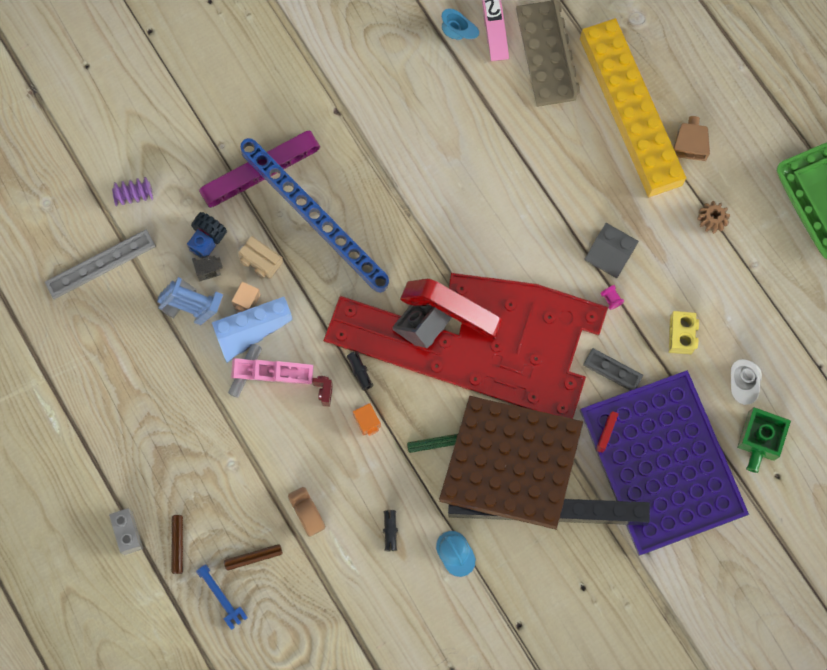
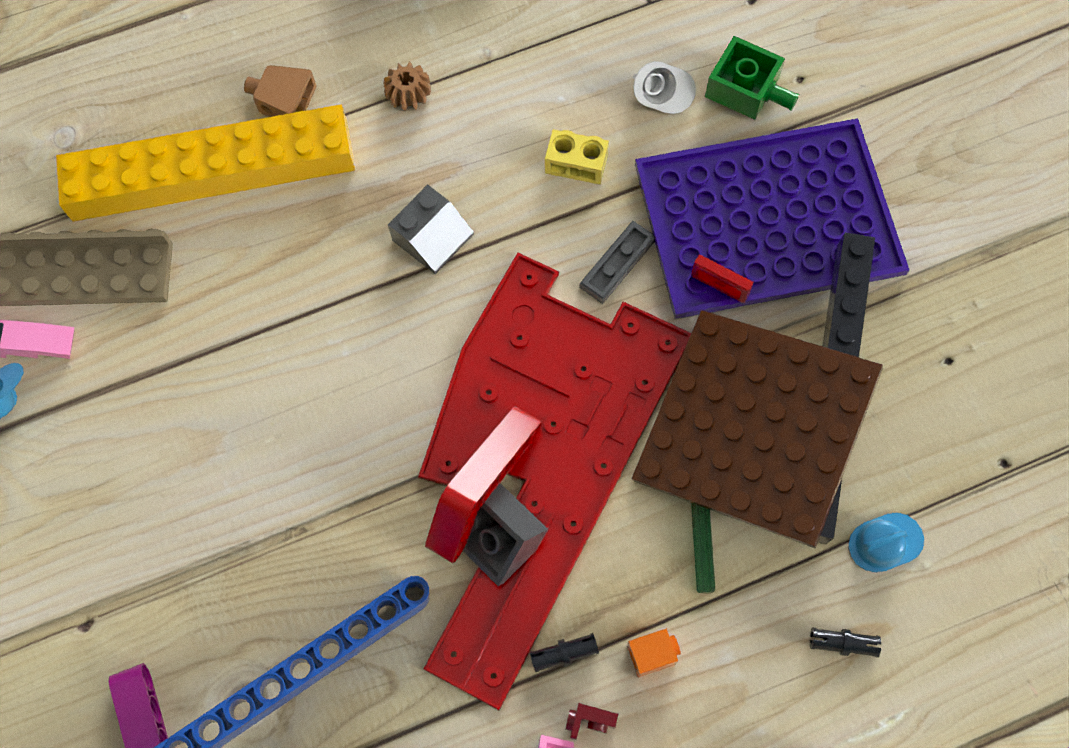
camera: 75 degrees left, 5 degrees down
(612, 297) = (505, 241): dark pink bush -> none

